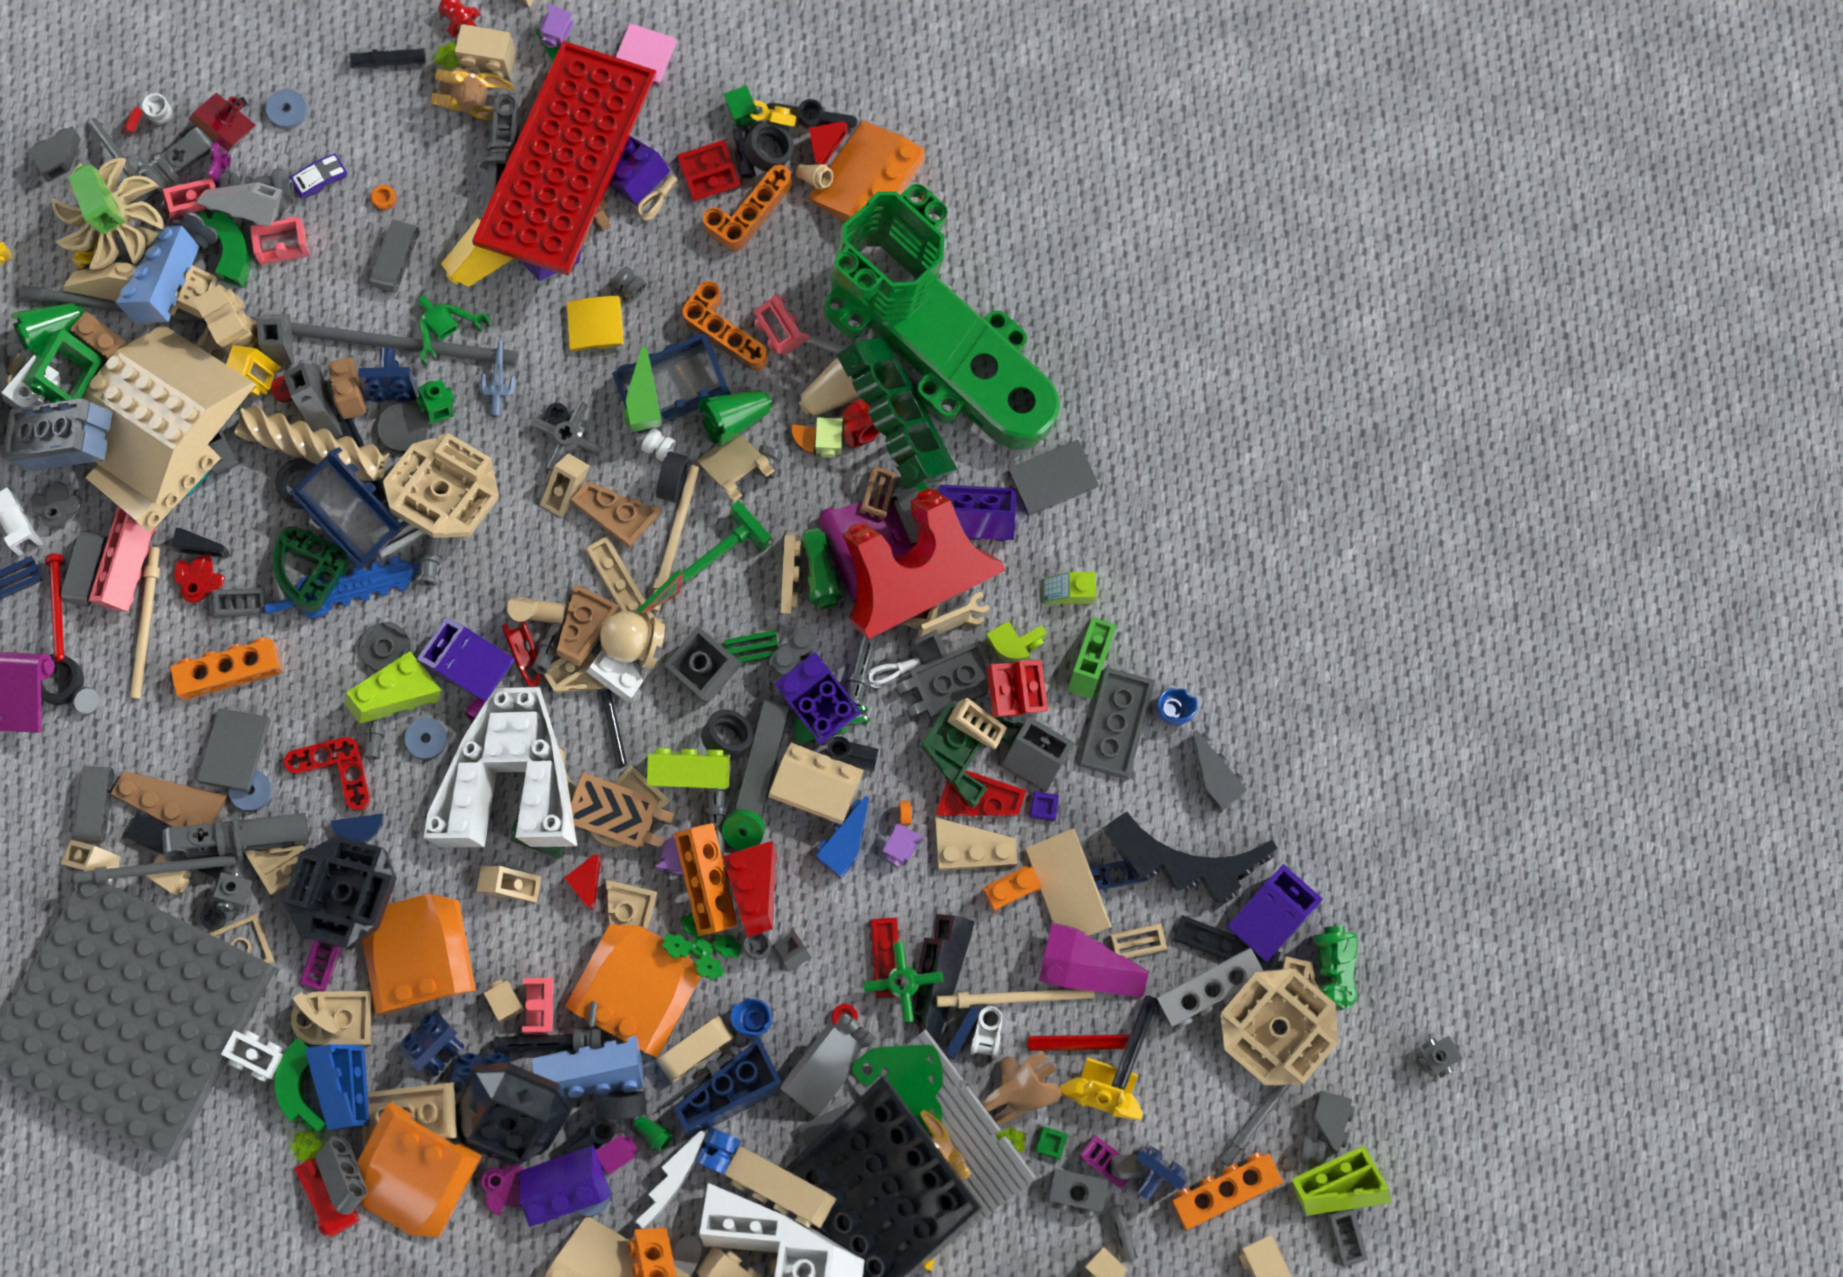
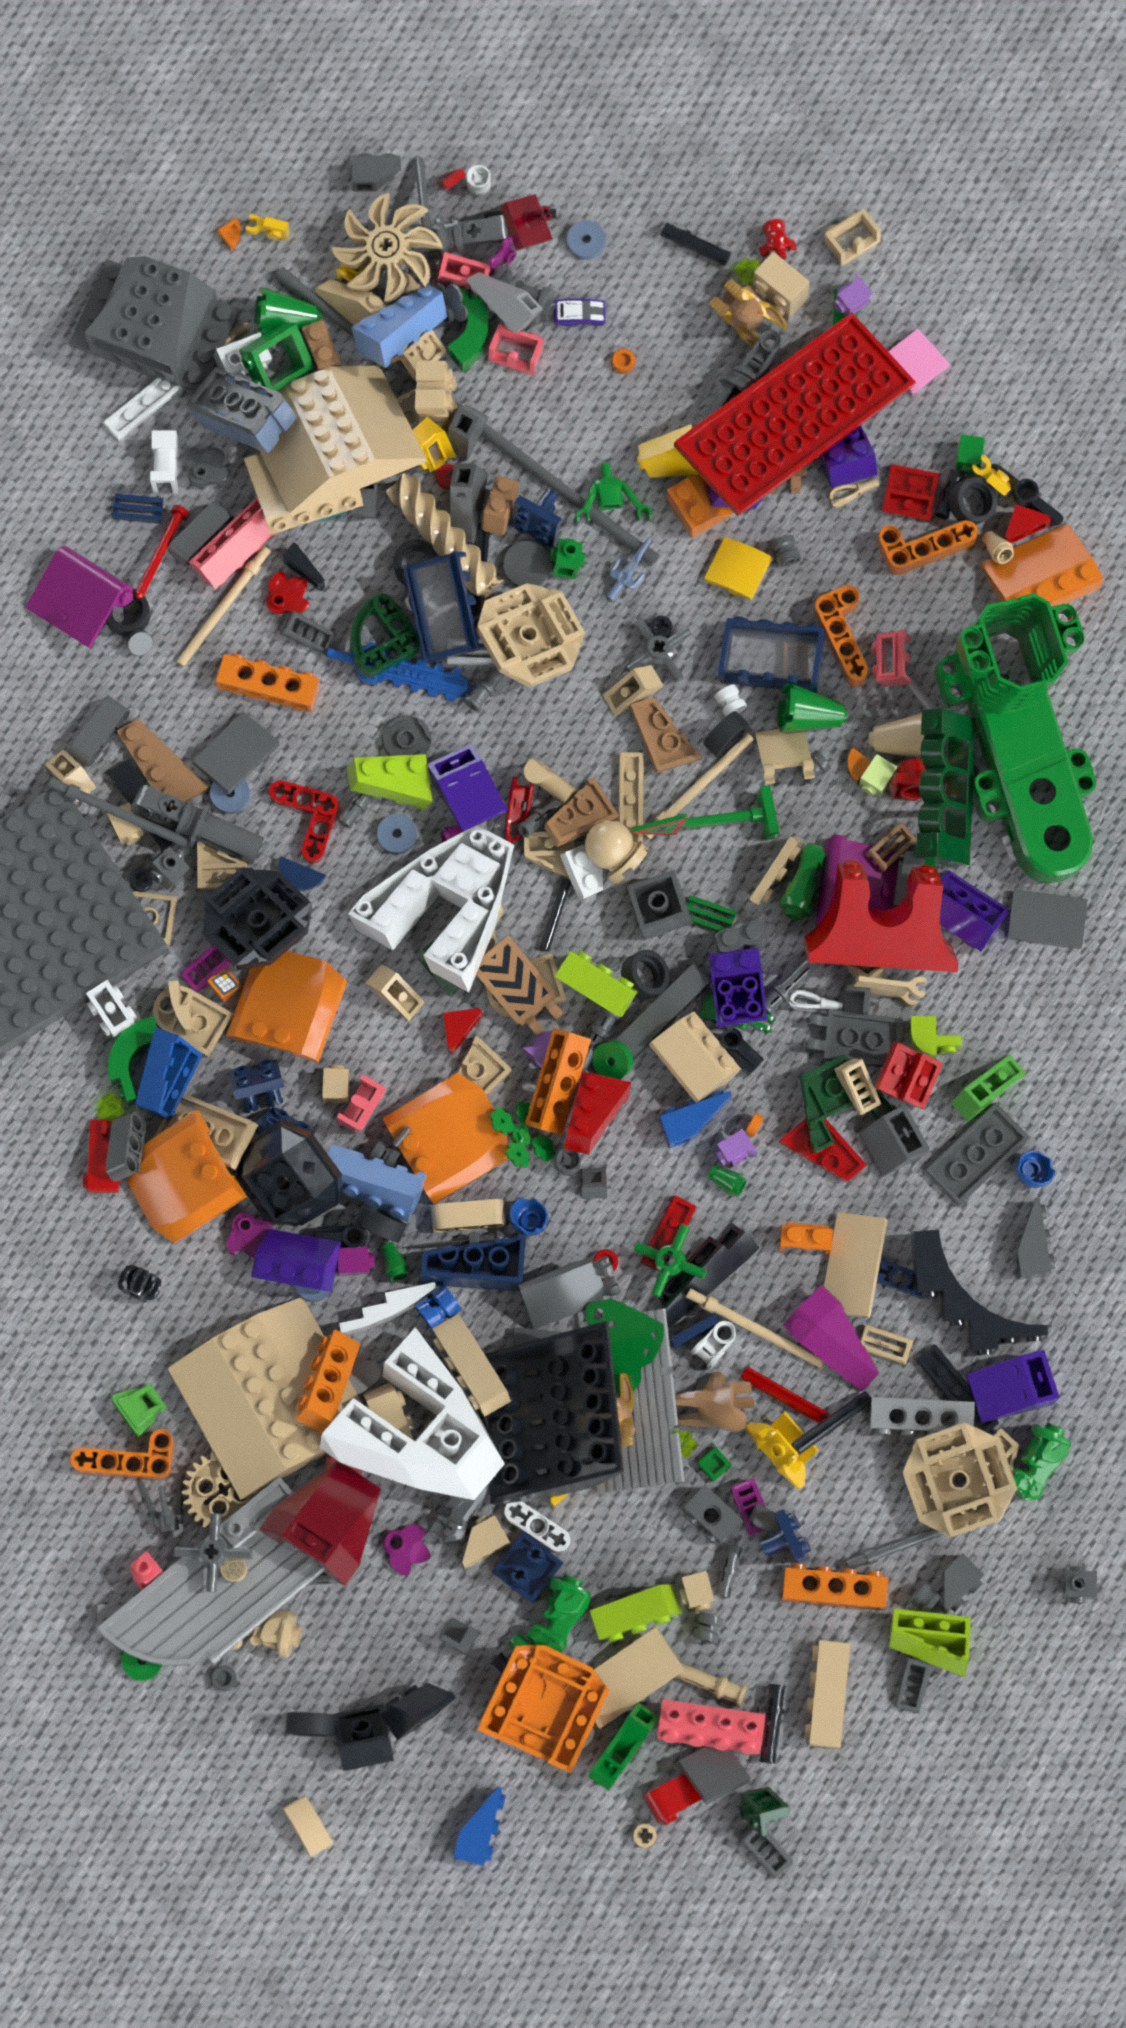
camera: 30 degrees right, 0 degrees up
(95, 199) = (384, 231): bright green slope -> none
(347, 969) = (224, 984): none -> slope
(394, 256) = (603, 415): dark grey beam -> none
(522, 291) = (693, 505): none -> orange slope
(533, 1043) = (314, 1119): black pin -> none
(642, 399) = (739, 653): bright green slope -> none
(910, 877) = (729, 1181): none -> green cone
(972, 848) = (793, 1186): tan wing -> none
(1044, 806) = (874, 1187): dark purple tile -> none
(1070, 588) = (1004, 1019): lime slope -> none

